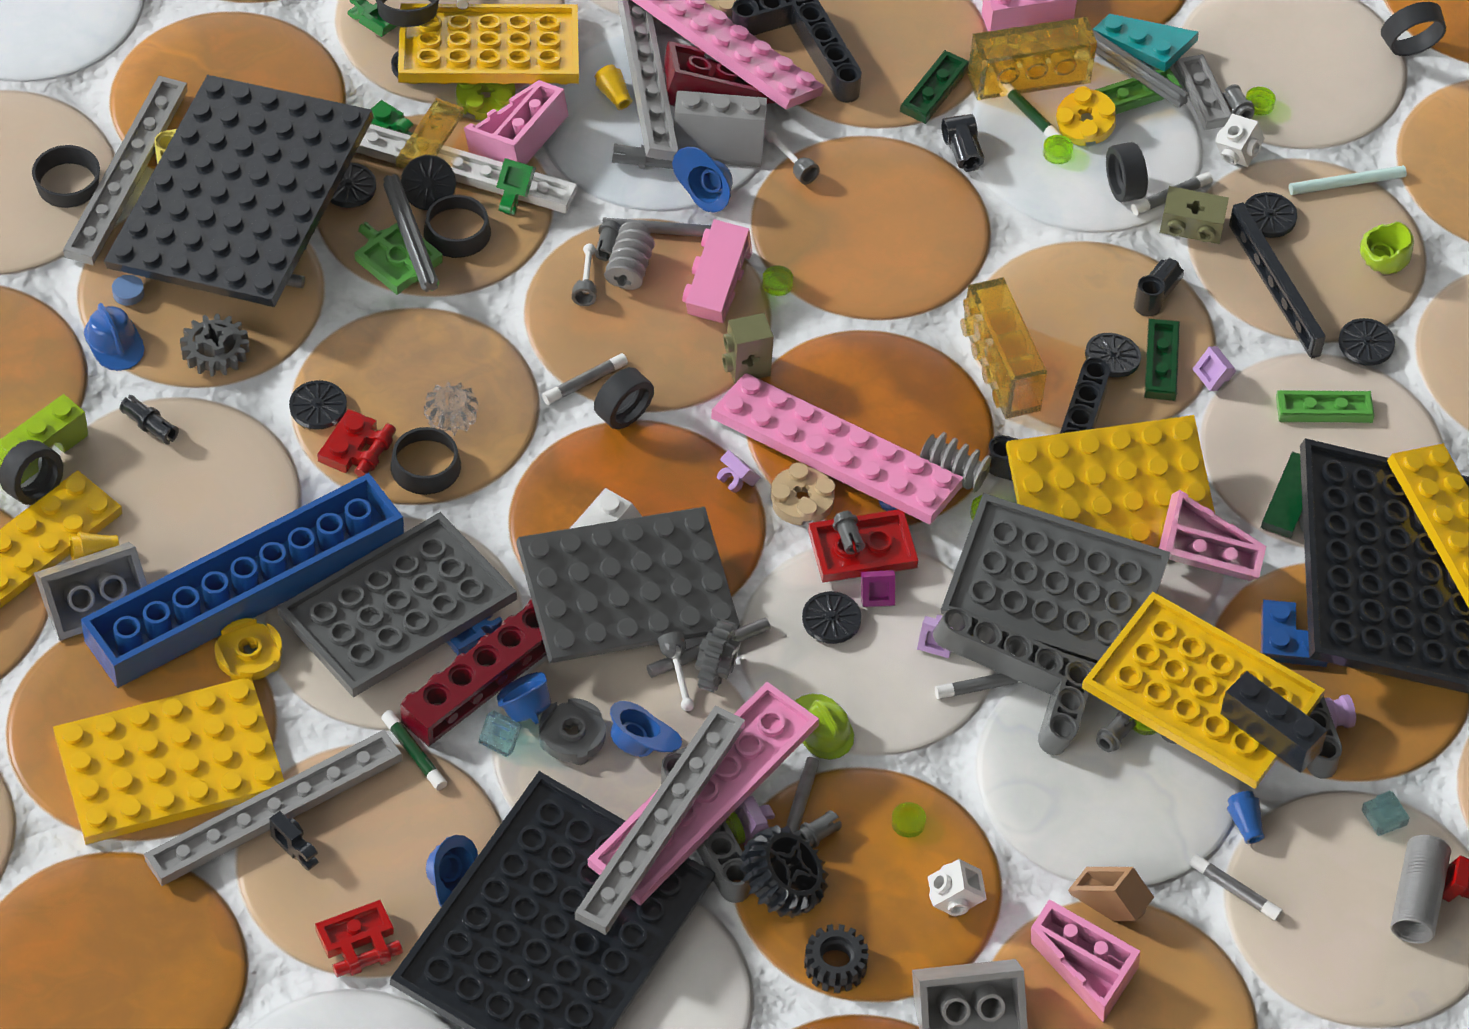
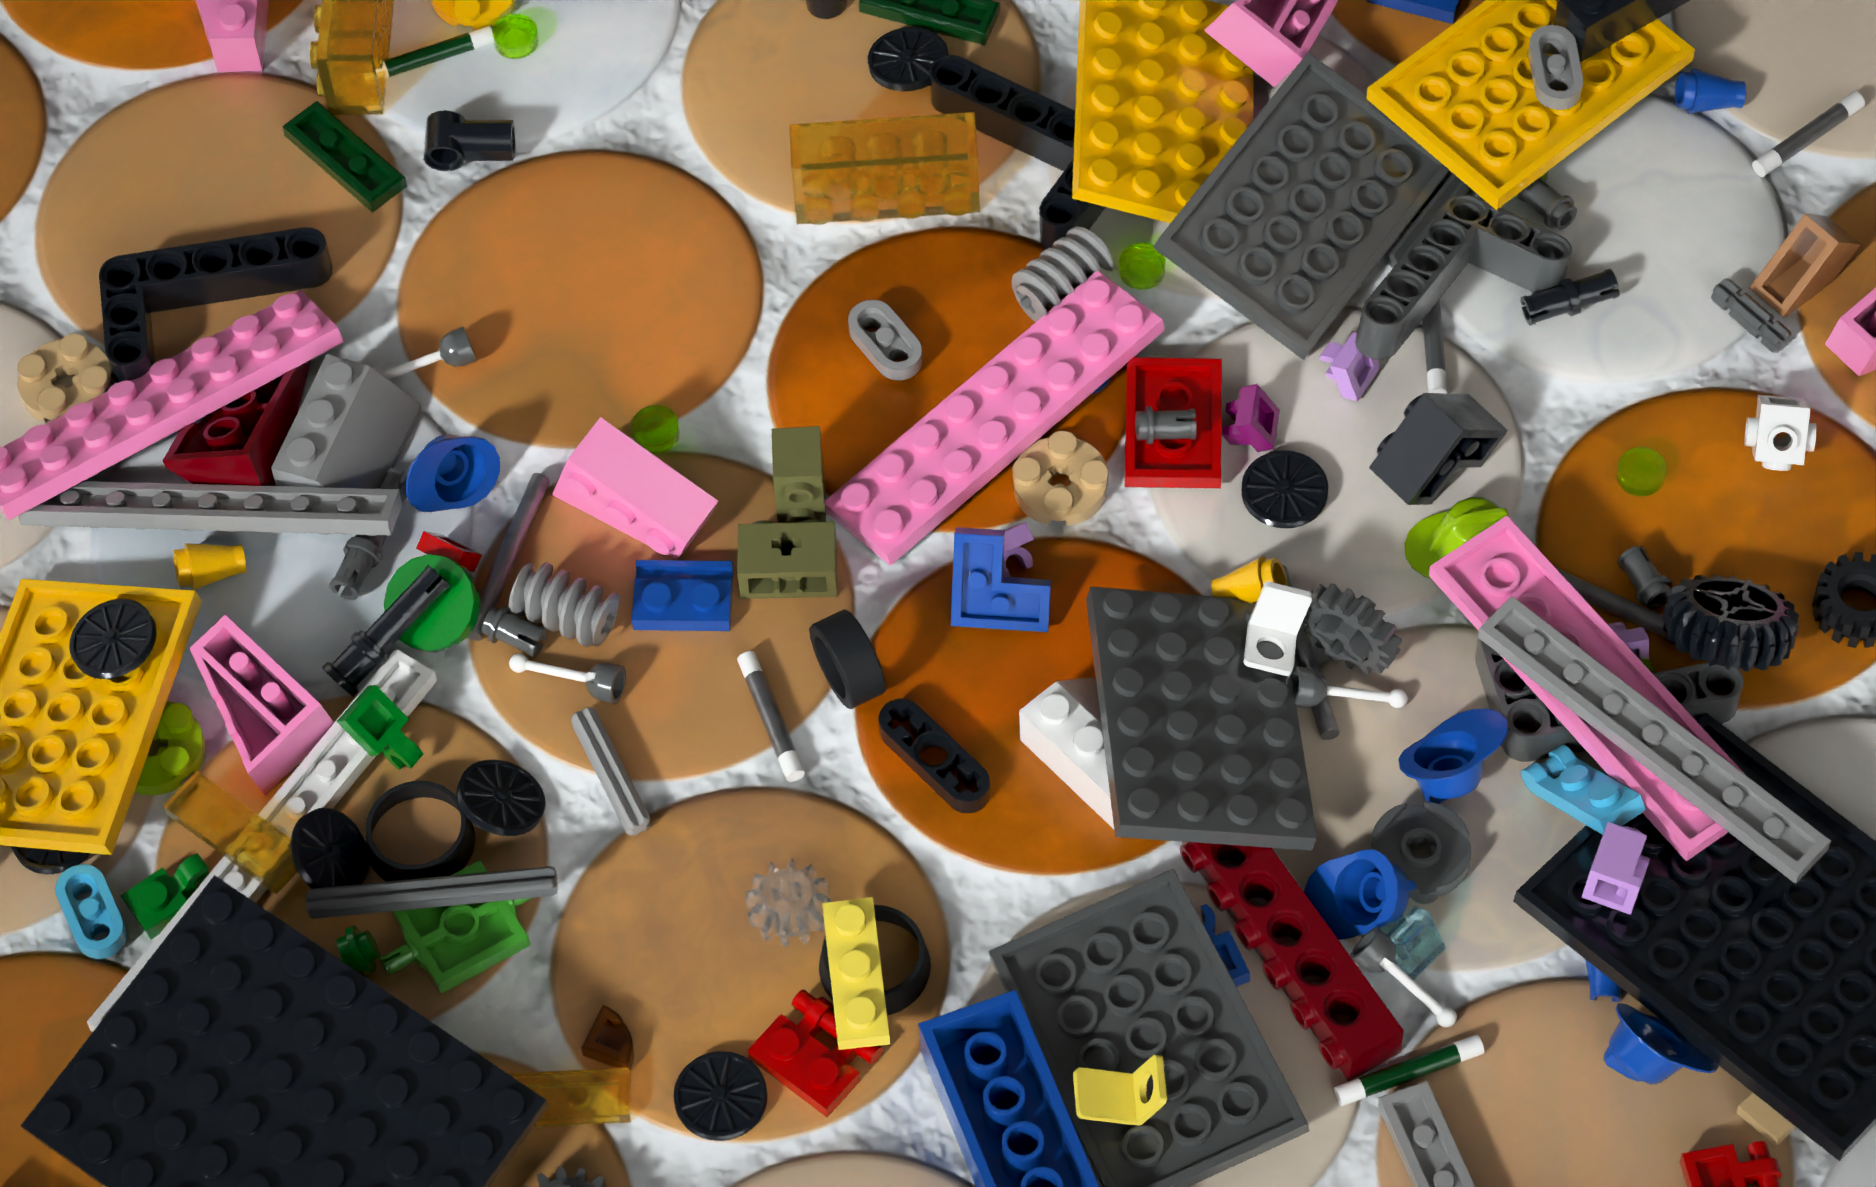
camera: 70 degrees left, 5 degrees up
(299, 327) = (581, 1095): none -> clear yellow tile
(343, 346) = (609, 1040): none -> reddish brown tile
(346, 581) = (1120, 1095): none -> light yellow bracket
(365, 89) = (92, 914): none -> medium azure plate
(370, 211) = (358, 949): none -> green plate
(403, 443) = (856, 973): none -> light yellow plate
(477, 706) = (1377, 953): none -> hinge
(488, 256) = (500, 797): none -> black wheel
(524, 307) = (610, 771): none -> light grey axle
(536, 45) = (113, 639): none -> black wheel
(565, 817) = (1617, 869): none -> lavender brick
(572, 170) = (371, 647): none -> black pin
(576, 478) = (939, 776): none -> black beam
(612, 192) = (450, 615): none -> green tile
(619, 806) = (1582, 790): none -> medium azure plate
(651, 195) = (443, 546): none -> red tile
(659, 319) = (682, 595): none -> blue plate
(695, 465) = (987, 598): none -> blue plate
(696, 361) = (787, 559): none -> olive brick
(709, 612) = (1277, 620): none -> white bracket
(745, 605) = (1249, 580): none -> yellow cone
(874, 386) = (886, 344): none -> light grey plate
(884, 684) = (1433, 442): none -> black brick
(1038, 755) = (1570, 297): none -> black pin
(1060, 868) = (1751, 315): none -> dark grey axle
(1198, 691) = (1558, 71): none -> light grey plate

